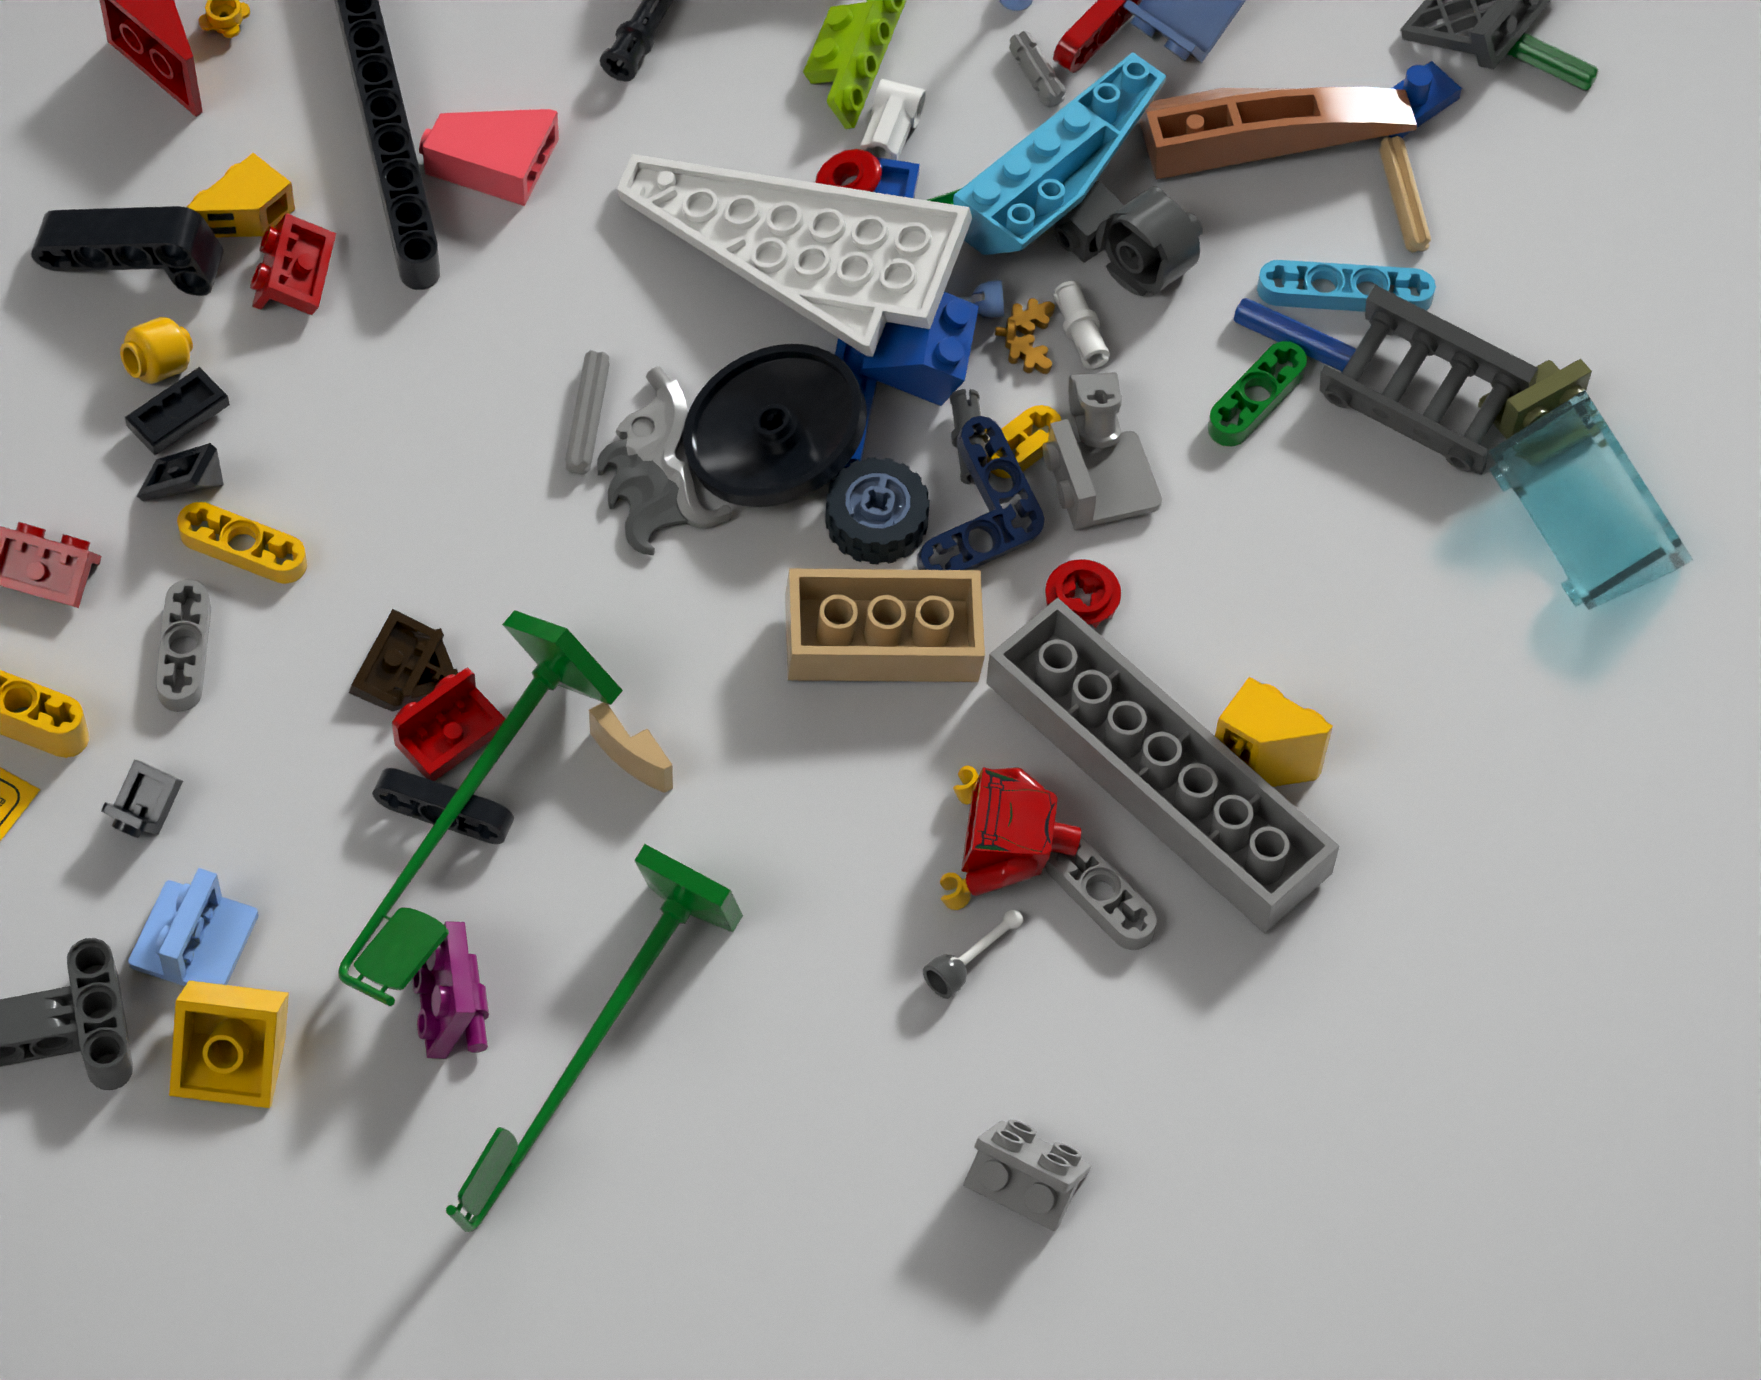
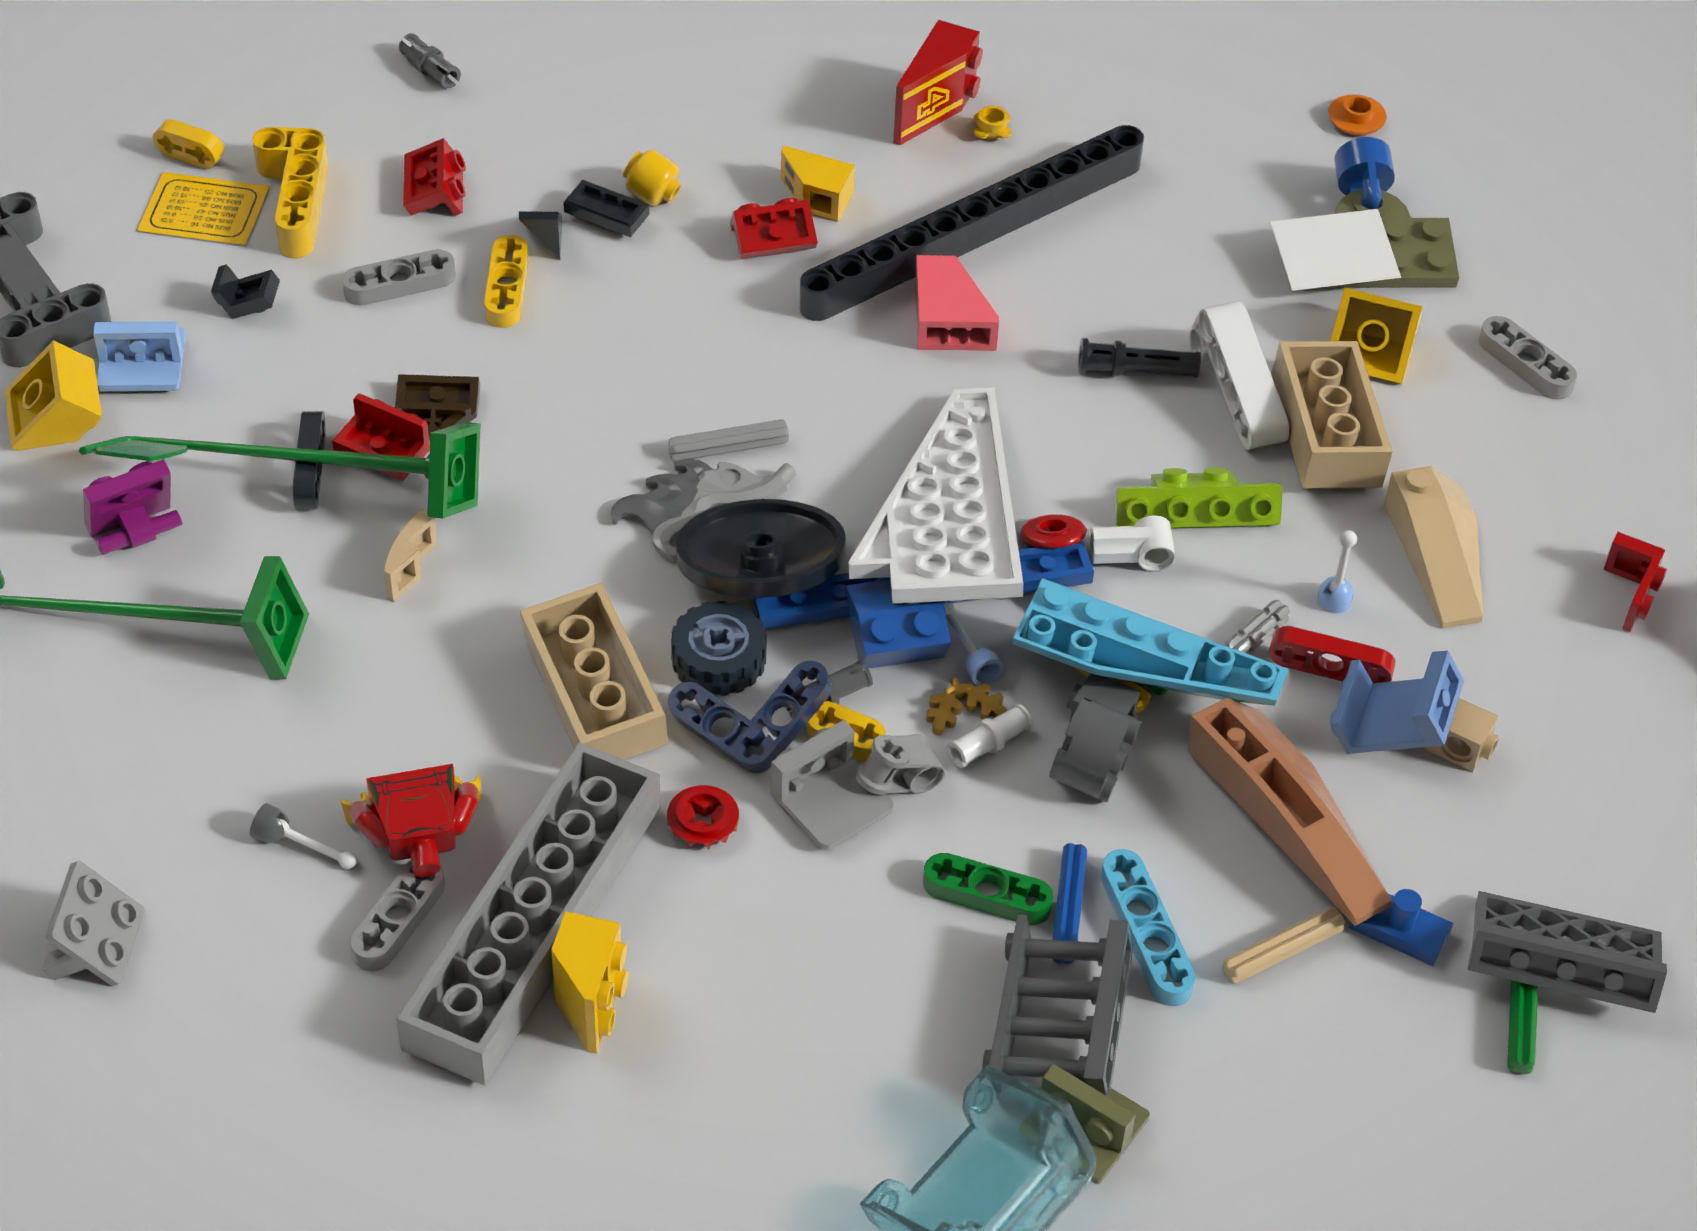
camera: 70 degrees right, 10 degrees down
(132, 240) = (739, 137): black beam -> none

